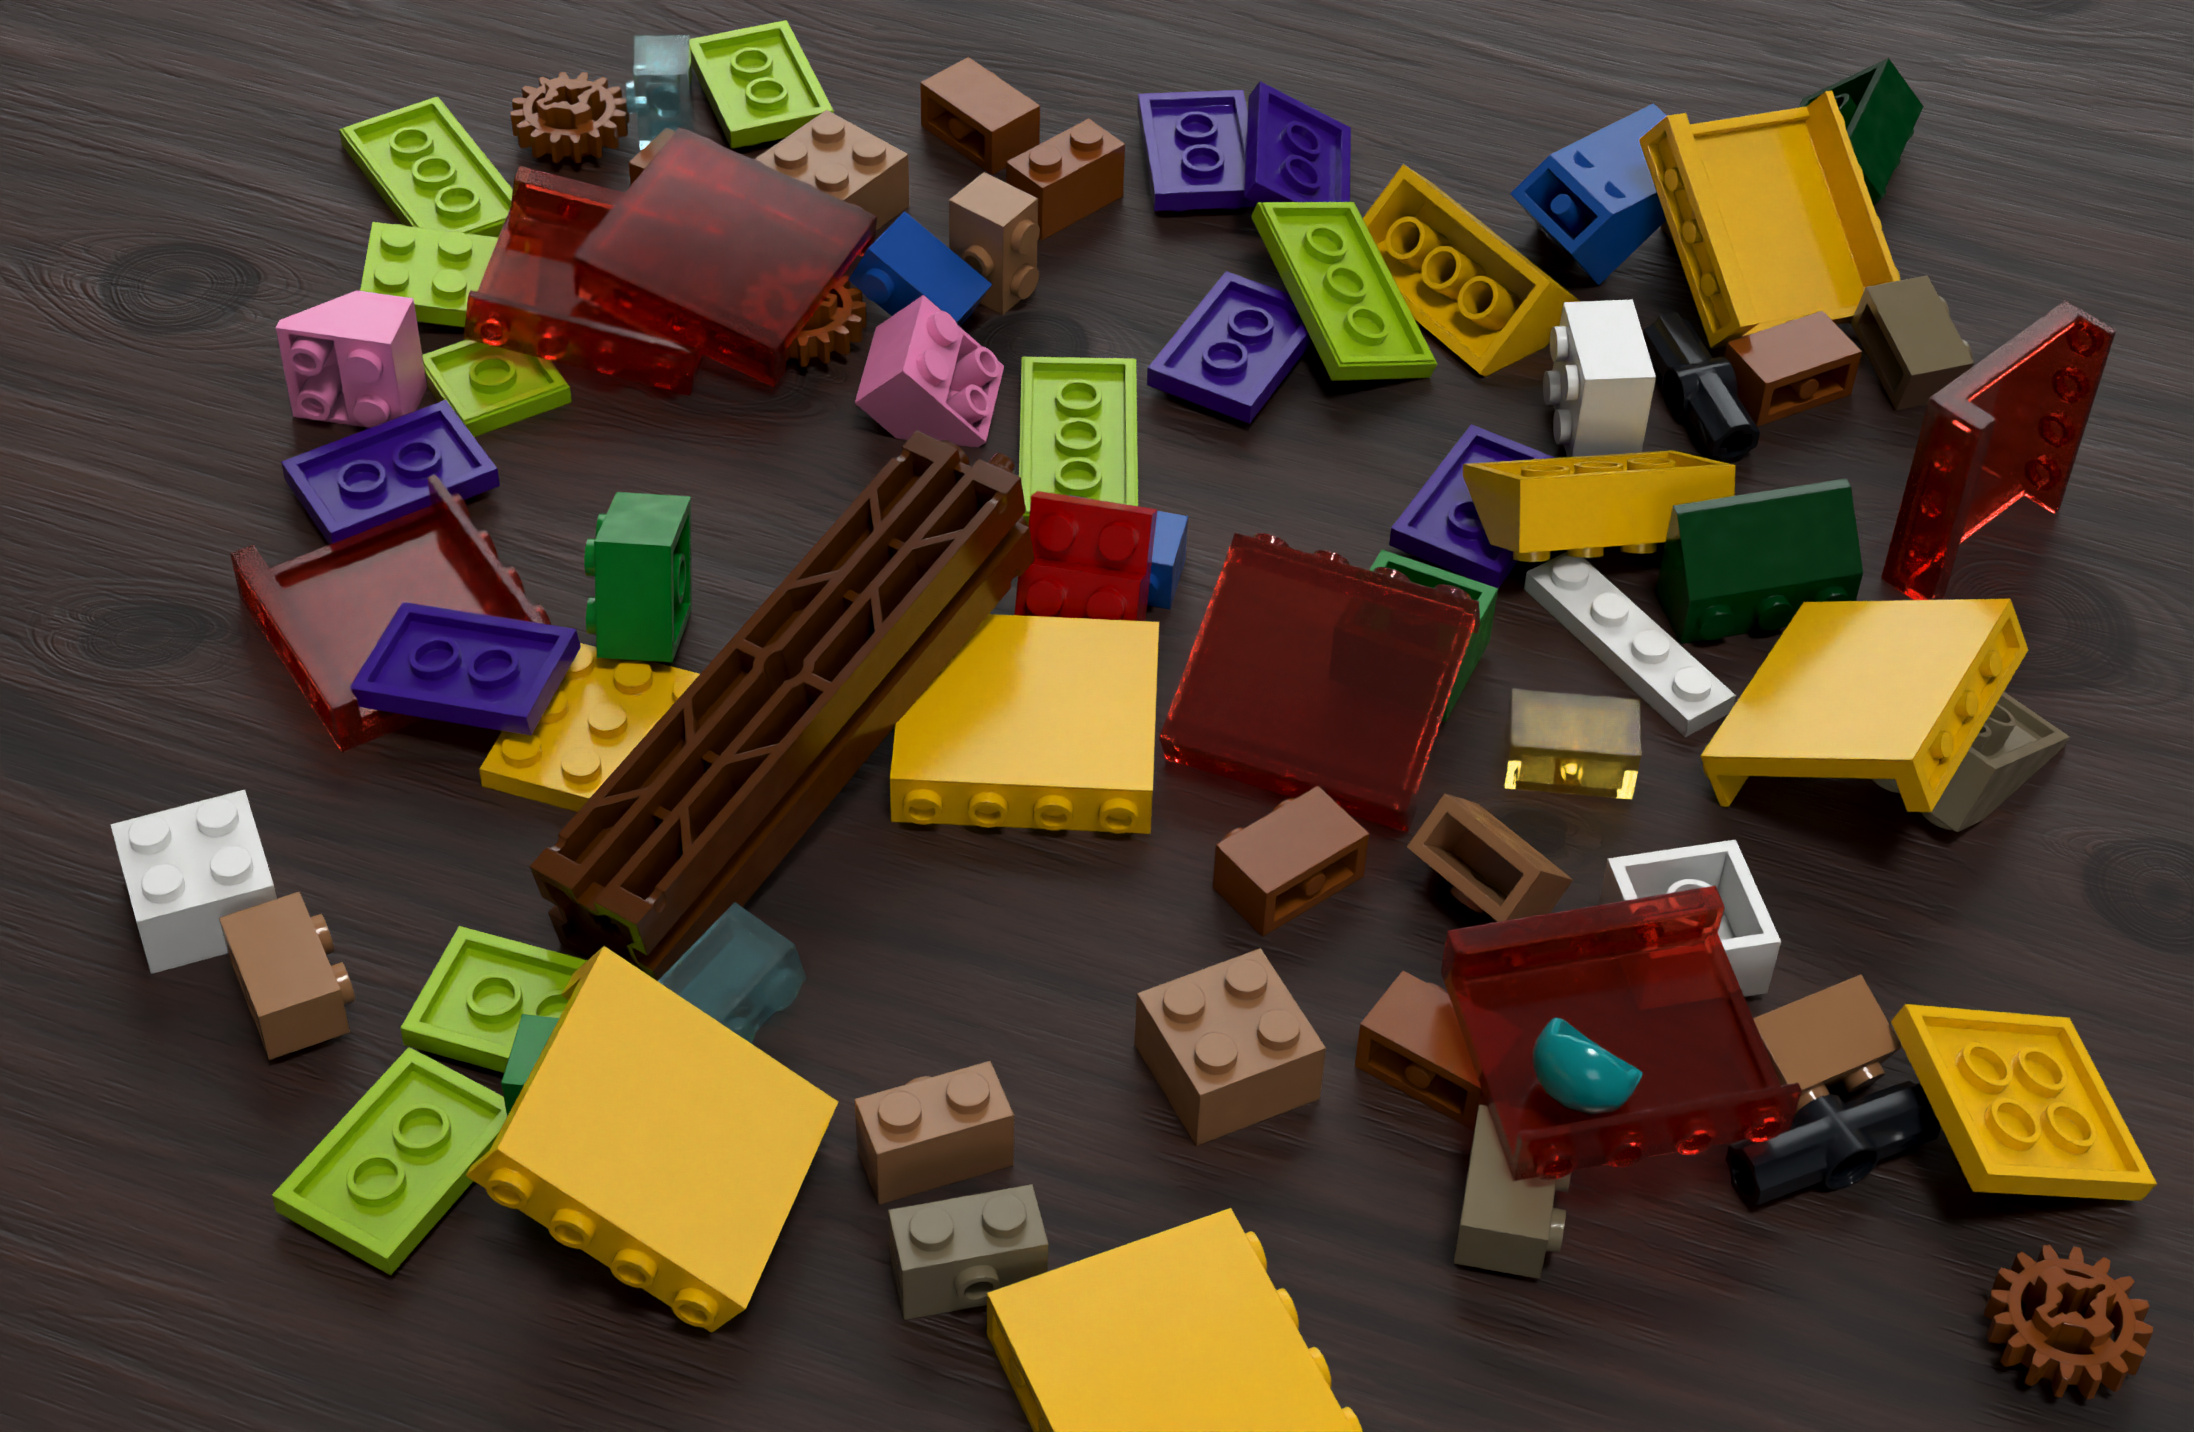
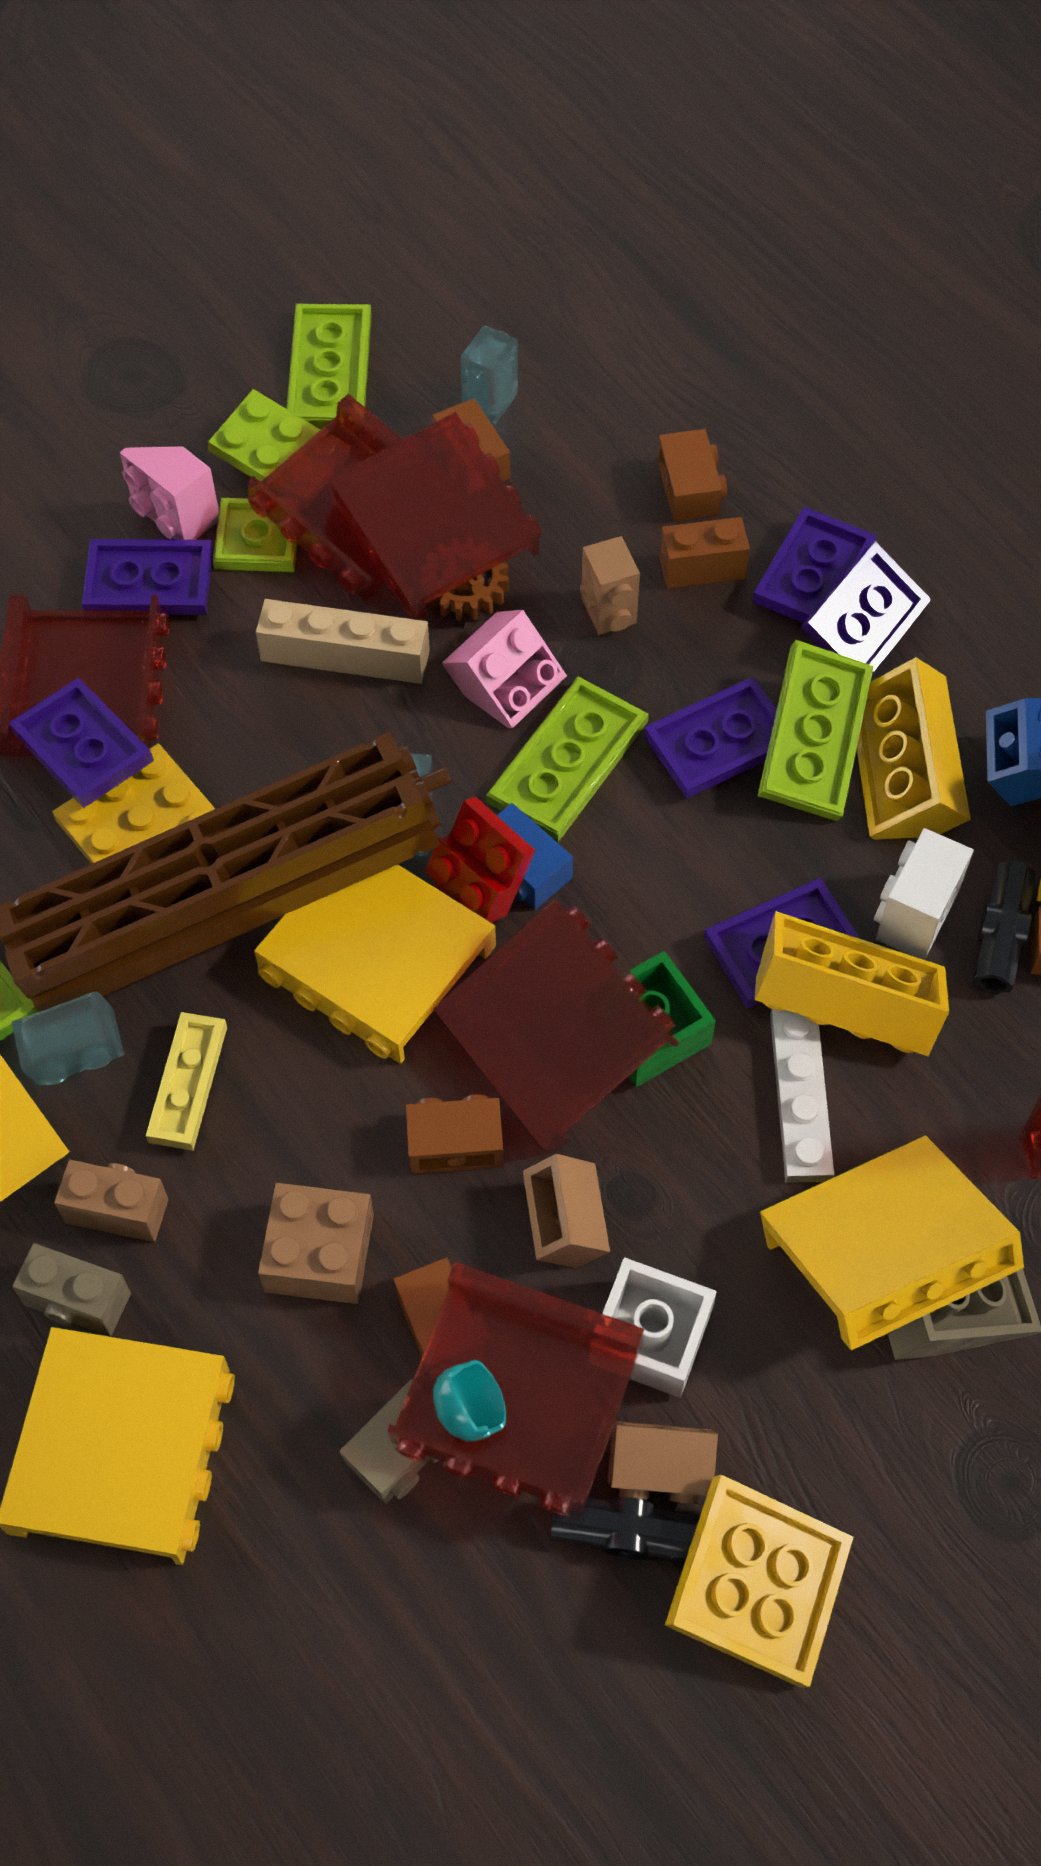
camera: 35 degrees right, 15 degrees up
(569, 117) = (430, 357): dark orange gear -> none
(640, 577) = (212, 732): green brick -> none
(711, 431) = (343, 641): none -> tan brick
(757, 82) = (570, 384): lime plate -> none
(845, 165) = (556, 483): medium nougat brick -> none
(912, 967) = (186, 1081): none -> light yellow plate
(915, 263) = (544, 590): blue brick -> none
(1572, 744) = (695, 1150): clear yellow brick -> none
(1757, 558) = (921, 1091): dark green slope -> none
(2068, 1321) = (643, 1742): dark orange gear -> none

